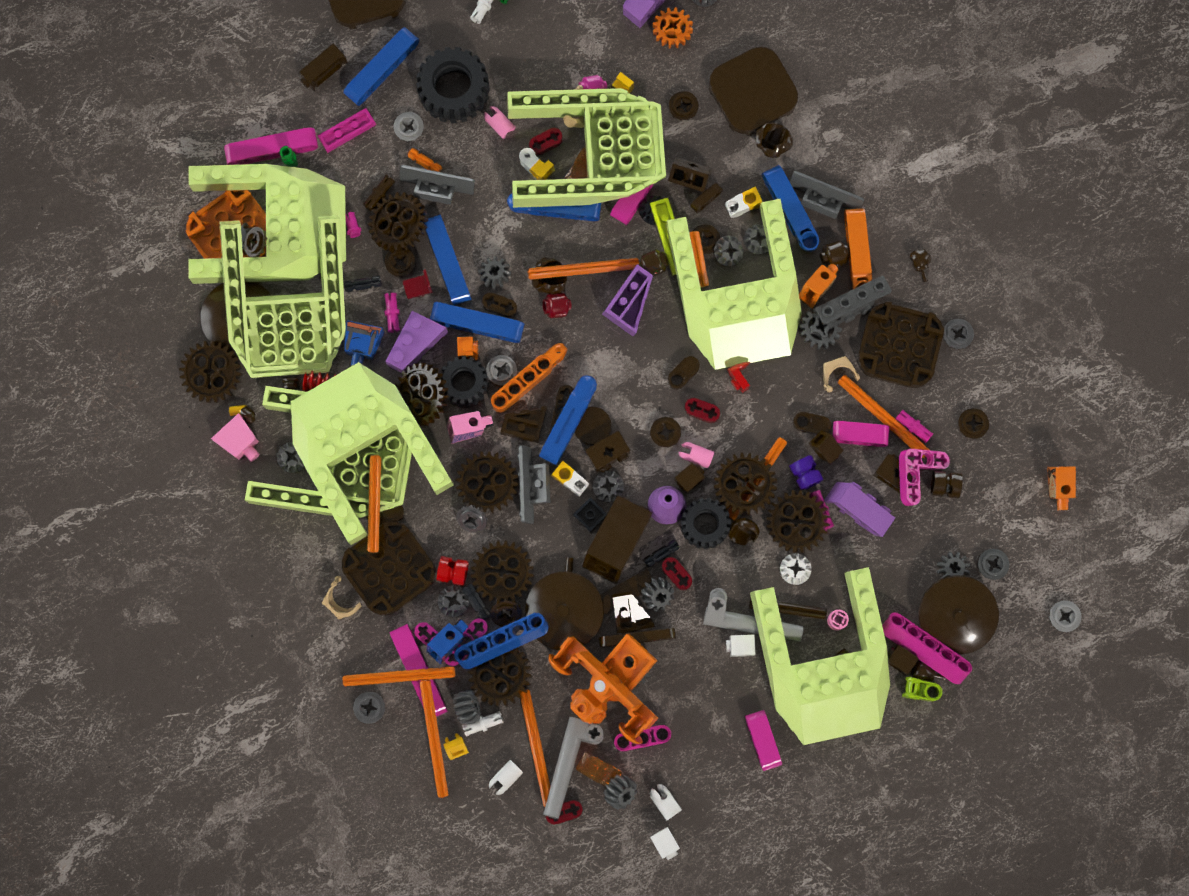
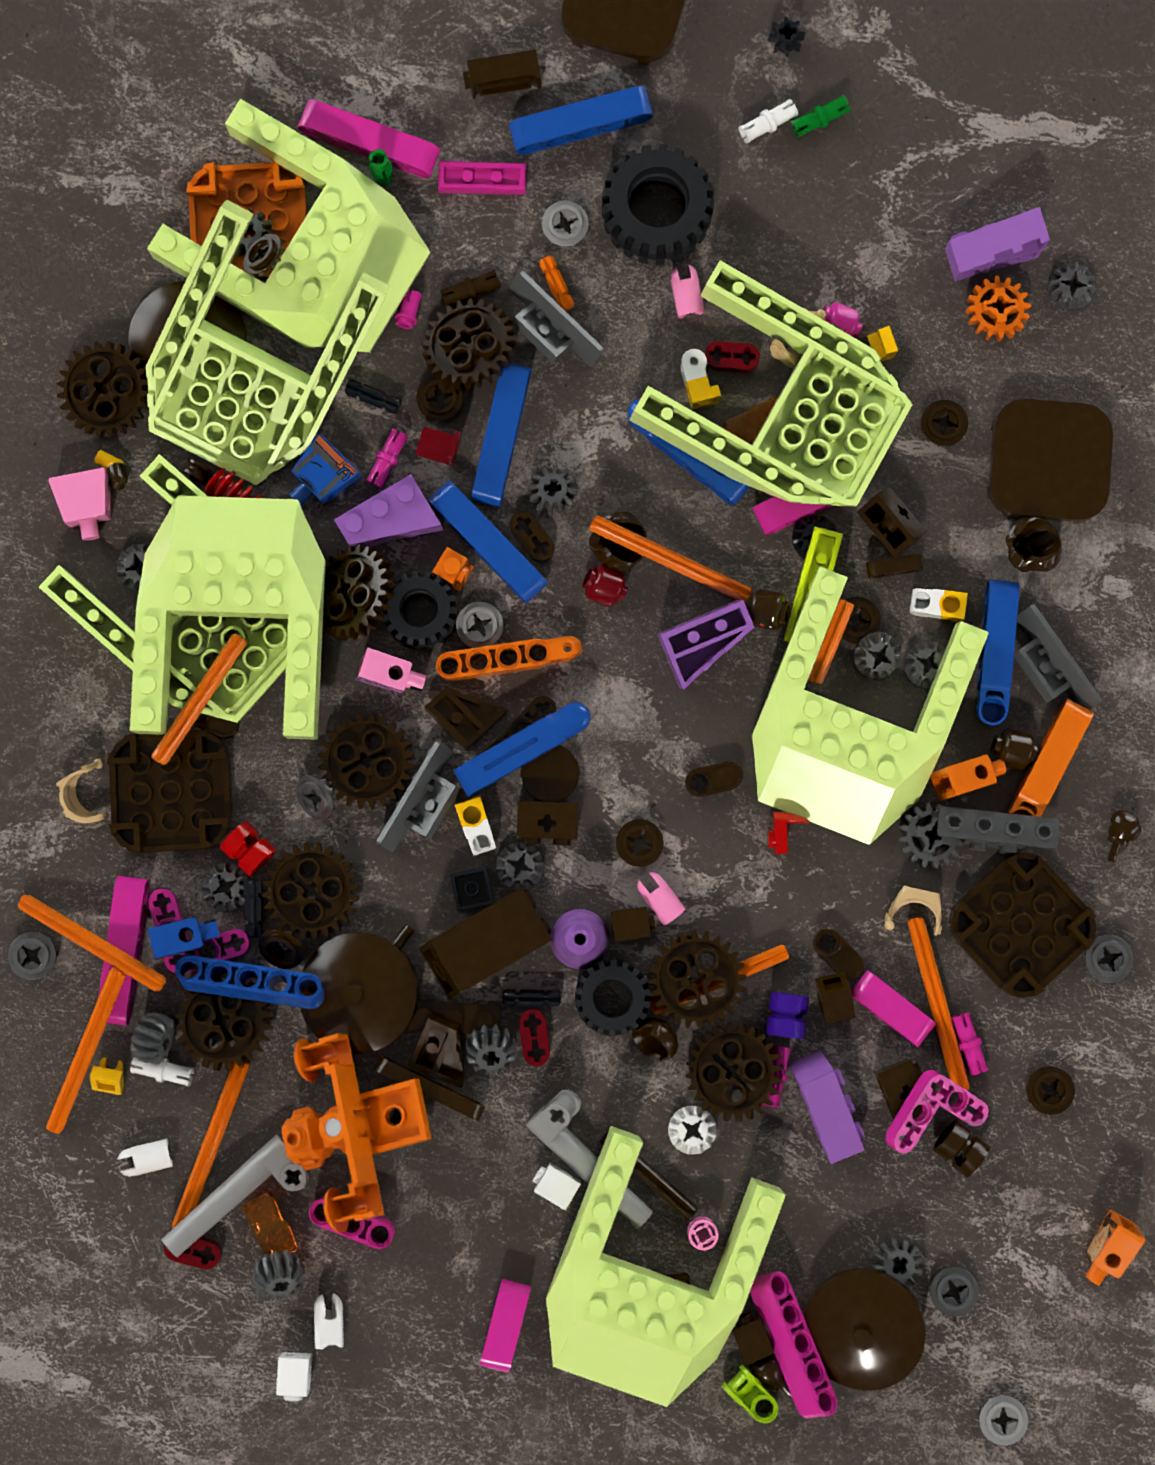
camera: 30 degrees right, 5 degrees up
(700, 414) = (712, 840): dark red beam -> none

